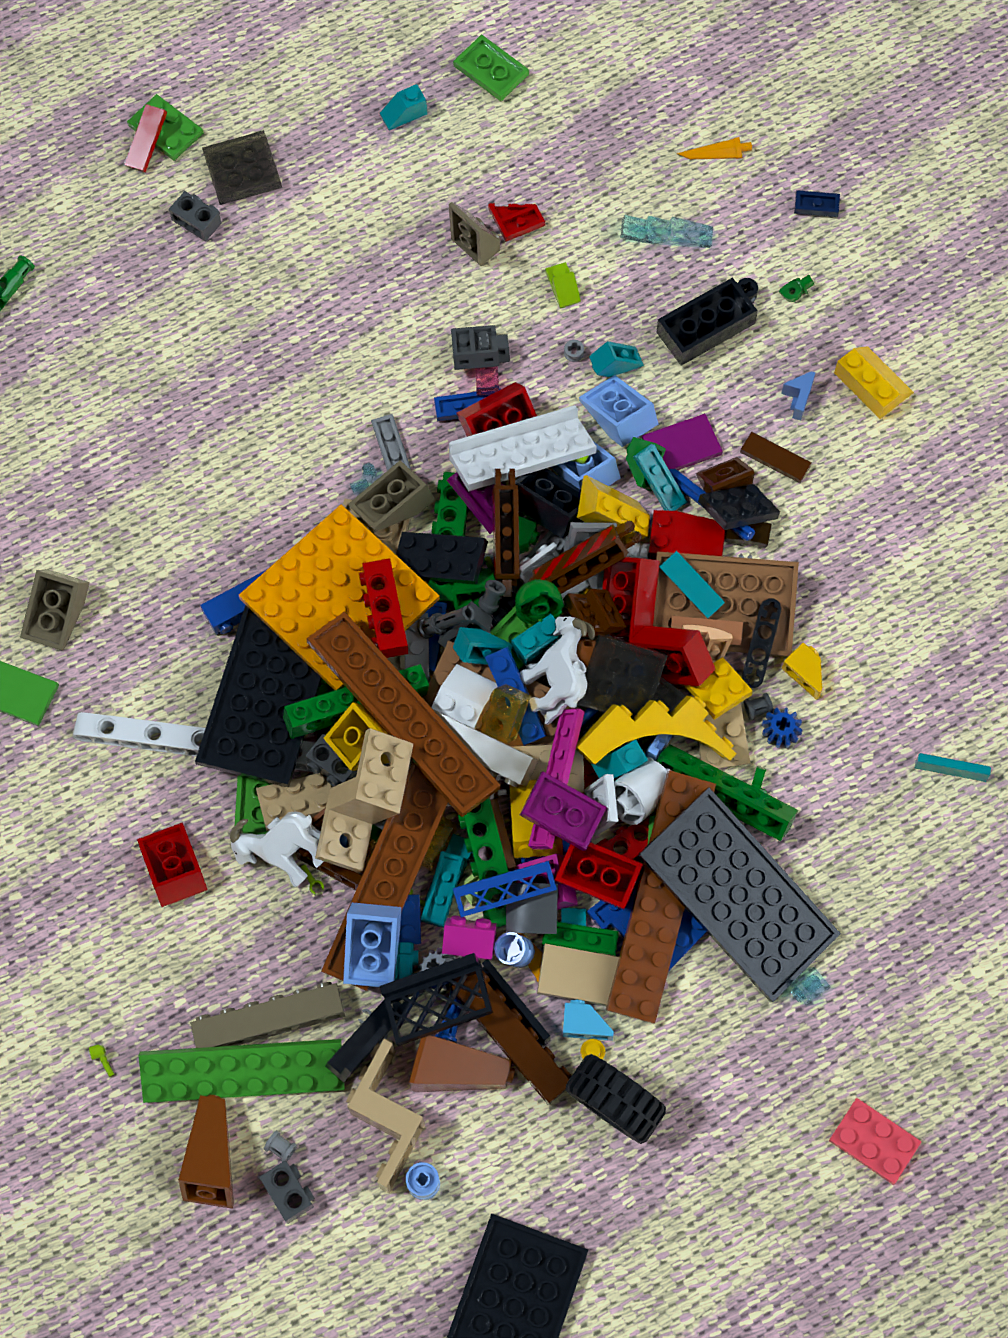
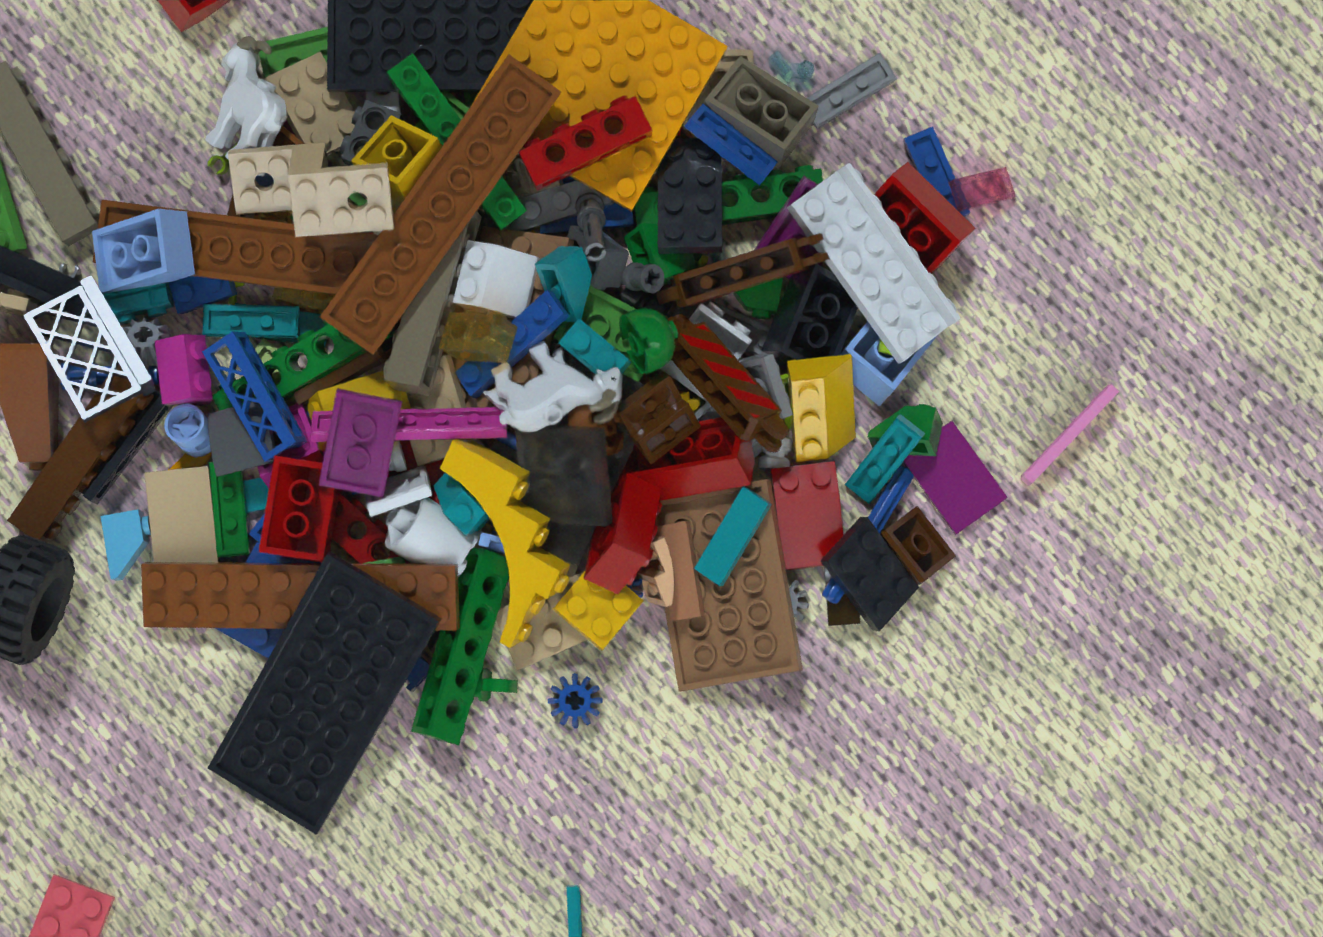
camera: 75 degrees right, 15 degrees up
(410, 522) = (731, 144): none -> blue plate
(472, 235) = (1195, 113): dark tan slope -> none
(479, 347) = (1022, 166): dark grey piece -> none
(516, 219) = (1241, 166): red wing -> none
(563, 284) = (1156, 256): lime slope -> none
(580, 350) = (1062, 288): light grey bush -> none
(594, 1047) = (93, 559): yellow plate -> none
(615, 359) = (1056, 357): teal slope -> none
(620, 410) = (981, 379): light blue slope -> none
(667, 232) = (1278, 379): clear light blue slope -> none
(672, 364) = (1069, 434): none -> bright pink tile
(706, 321) = (1145, 467): black brick -> none
(751, 286) = (1206, 512): black wheel -> none
(758, 706) = (597, 664): dark grey bush -> none
(765, 644) = (682, 647): black beam -> none
(775, 457) = (968, 608): reddish brown tile -> none
(798, 286) = (1239, 583): green piece -> none
(799, 389) = (1078, 622): medium blue slope -> none
(805, 669) = (665, 714): yellow slope -> none
(809, 986) = (240, 809): clear light blue bracket -> none
(872, 380) = (1120, 717): yellow slope -> none

